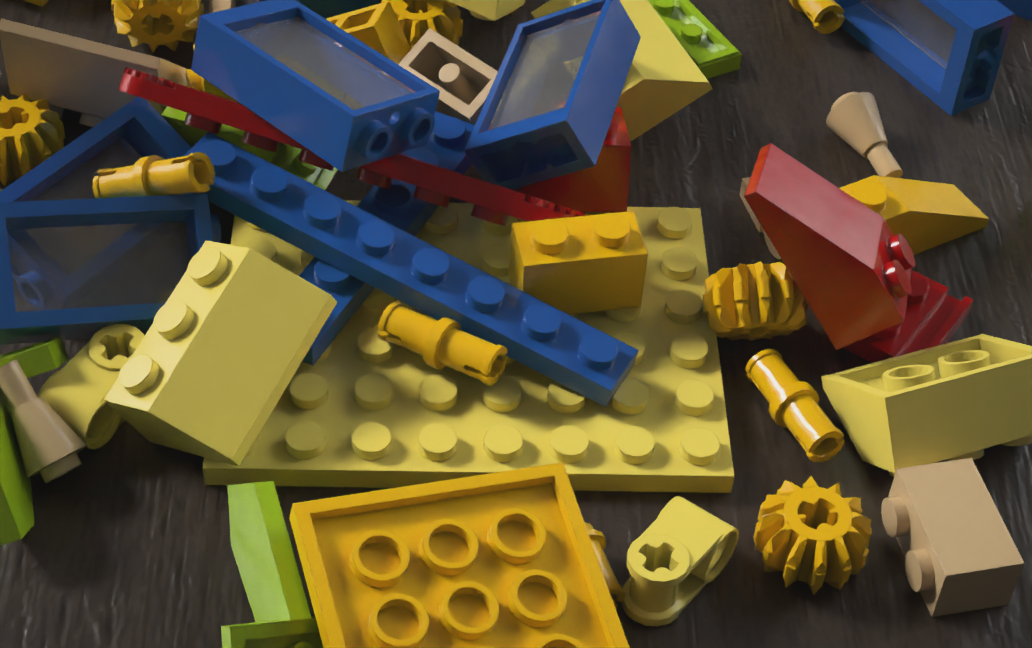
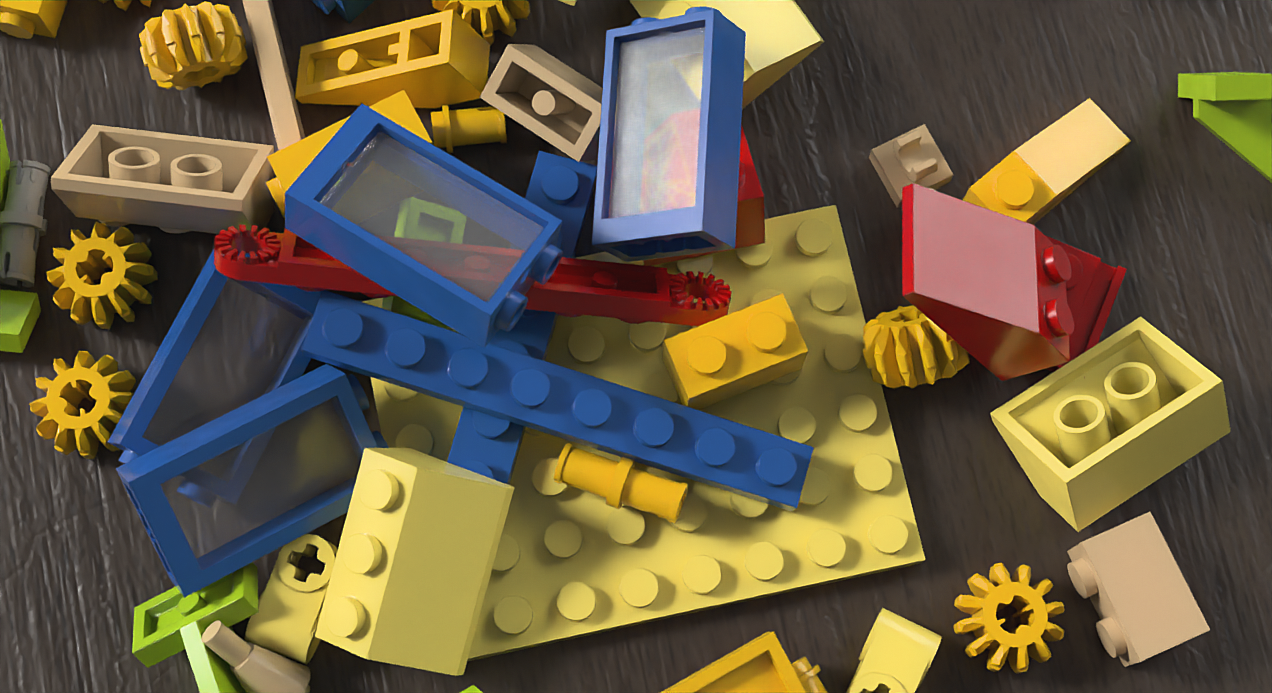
camera: 10 degrees left, 30 degrees up
(156, 177) = (285, 369): yellow pin -> none
(794, 405) = (968, 454): yellow pin -> none
(859, 124) = (986, 42): tan cone -> none

